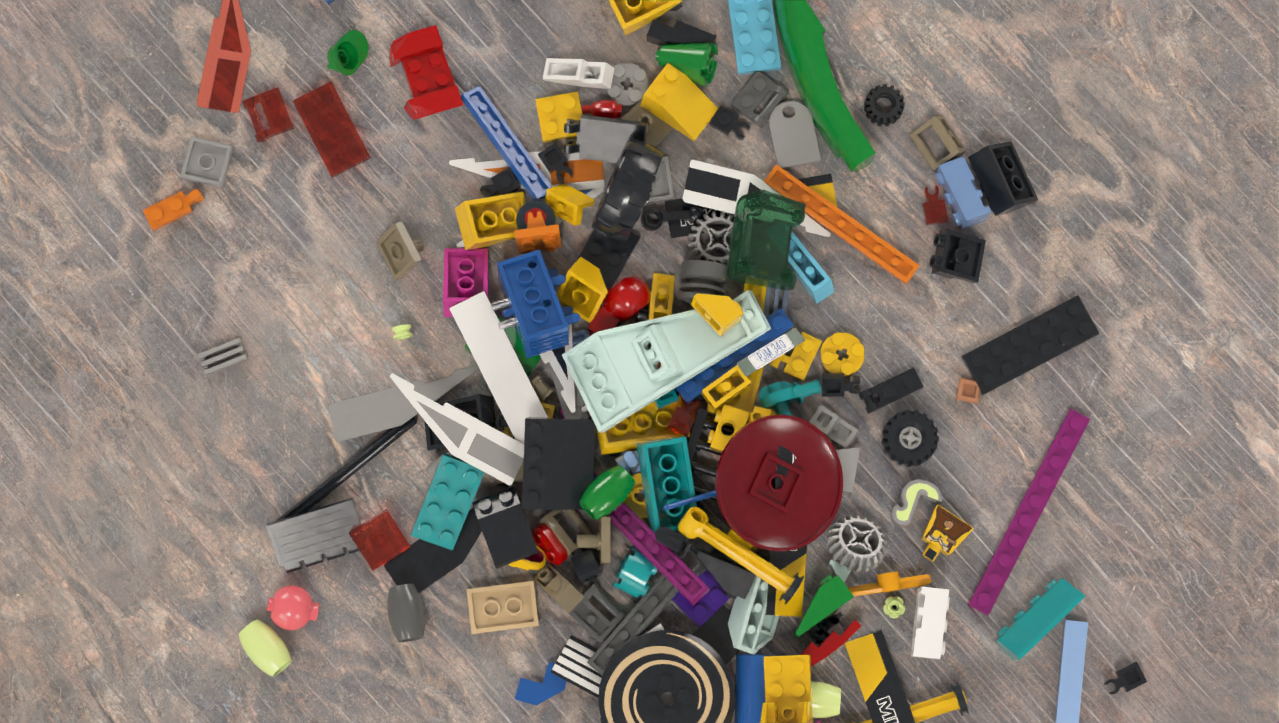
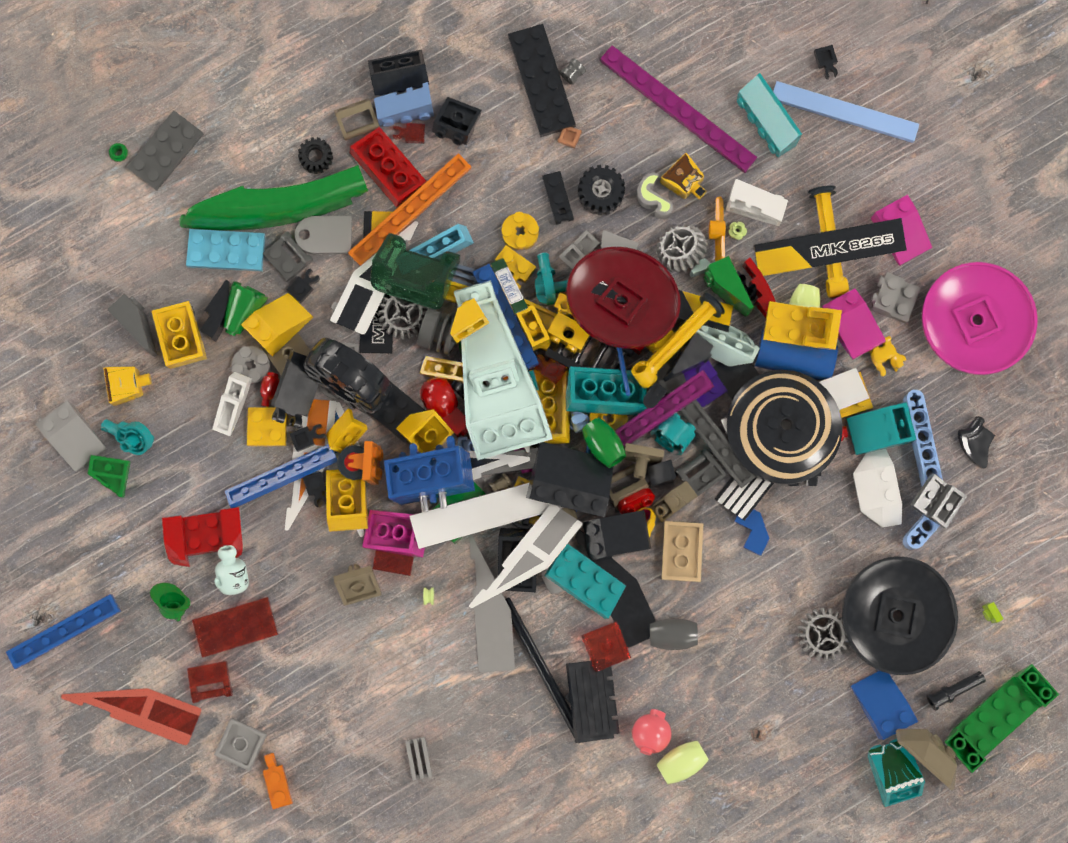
camera: 80 degrees left, 0 degrees up
(389, 111) = (230, 572): none -> light aqua piece
(432, 286) = (393, 563): none -> clear red plate
(675, 216) = (376, 330): black piece -> none
(836, 383) = (544, 239): black plate -> none
(888, 189) = (387, 166): none -> red slope
(1047, 379) = (573, 71): none -> dark grey wheel

